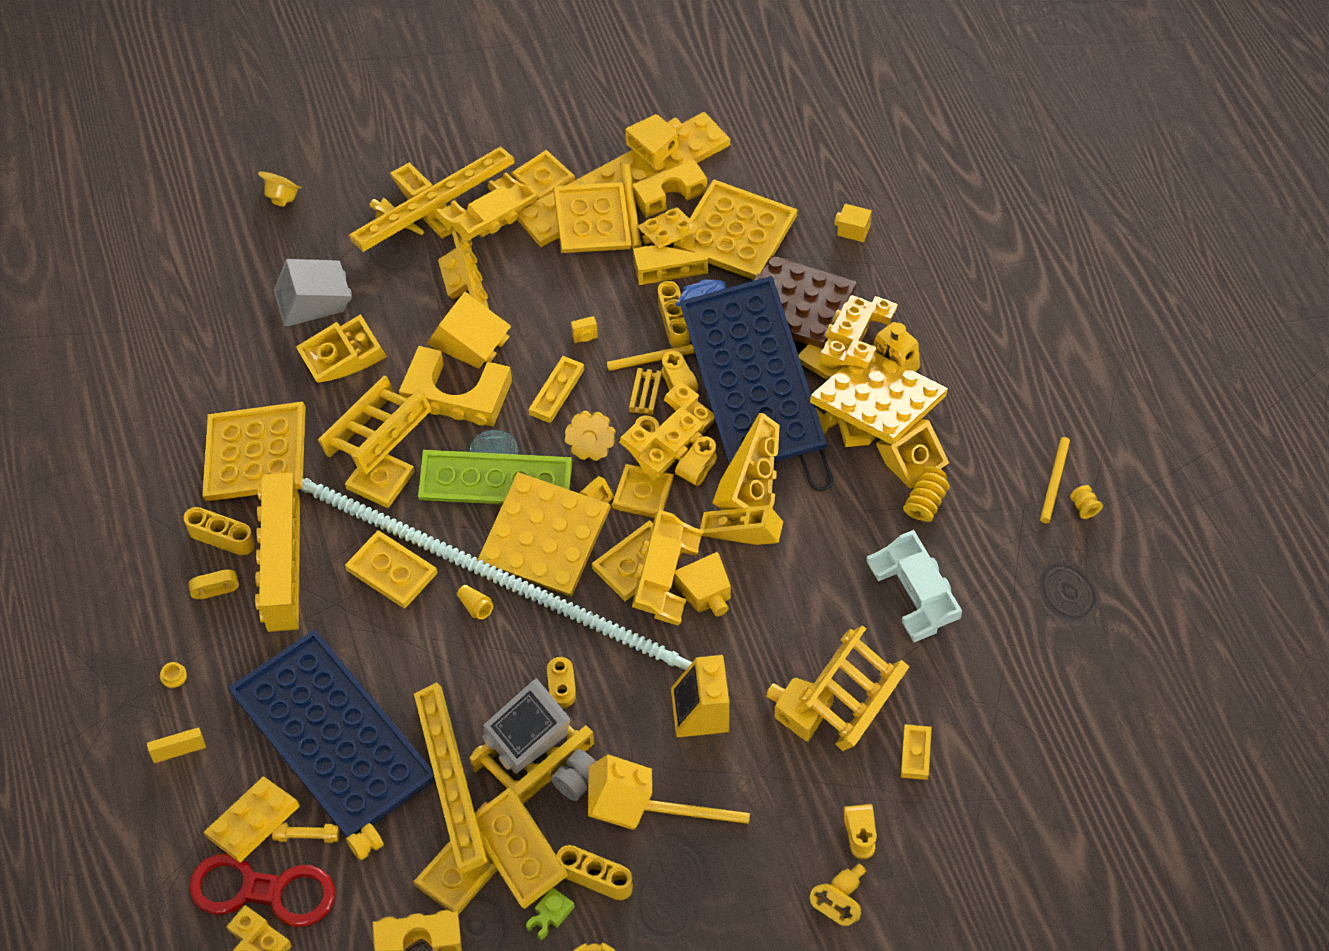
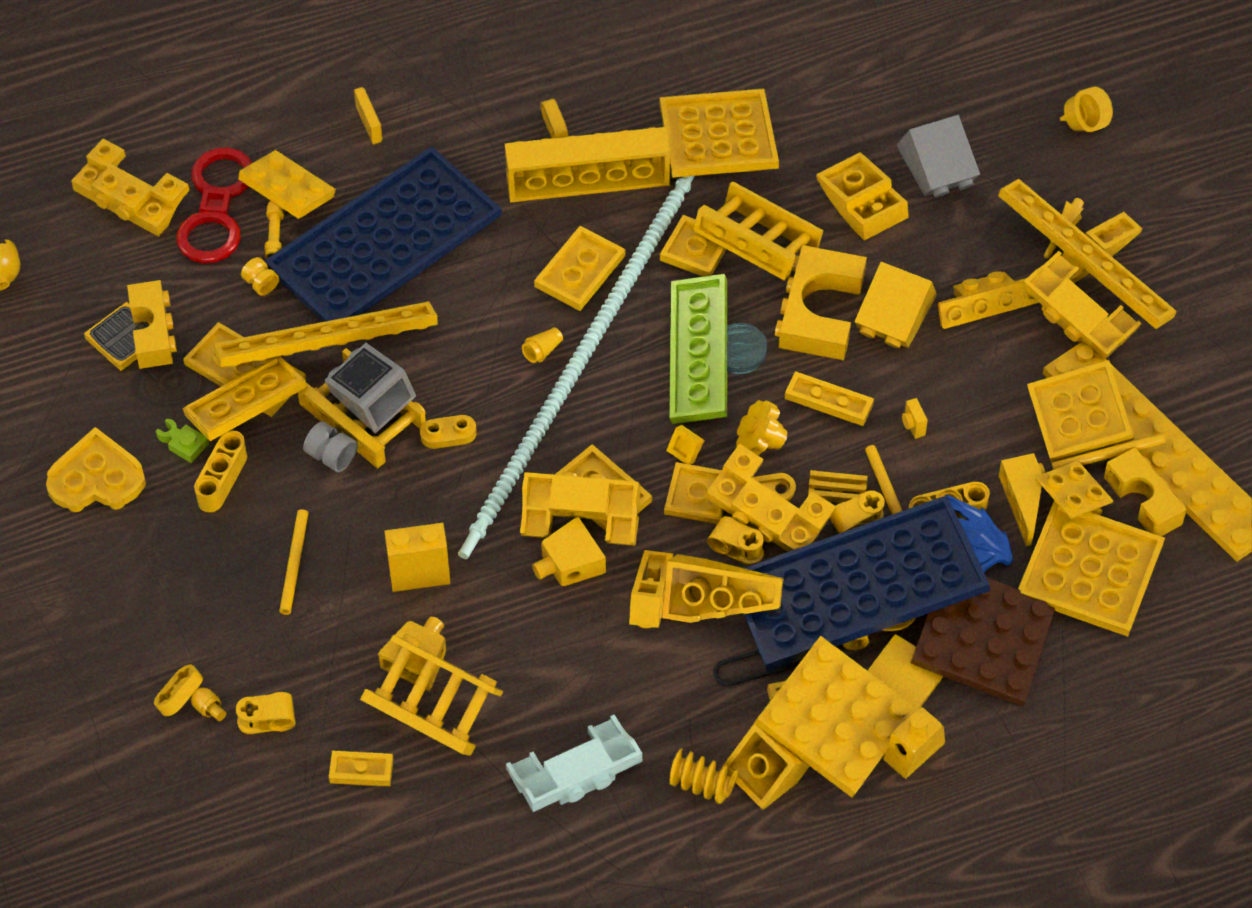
camera: 85 degrees right, 0 degrees up
(173, 675) = (449, 104): yellow plate -> none
(226, 539) = (621, 108): yellow beam -> none
(543, 174) = (1150, 365): yellow tile -> none
(544, 534) = (628, 398): yellow plate -> none
(618, 791) = (303, 480): yellow slope -> none
(653, 138) = (1210, 465): yellow torso -> none
(850, 327) = (936, 687): yellow bracket -> none
(853, 222) = (1118, 695): yellow brick -> none

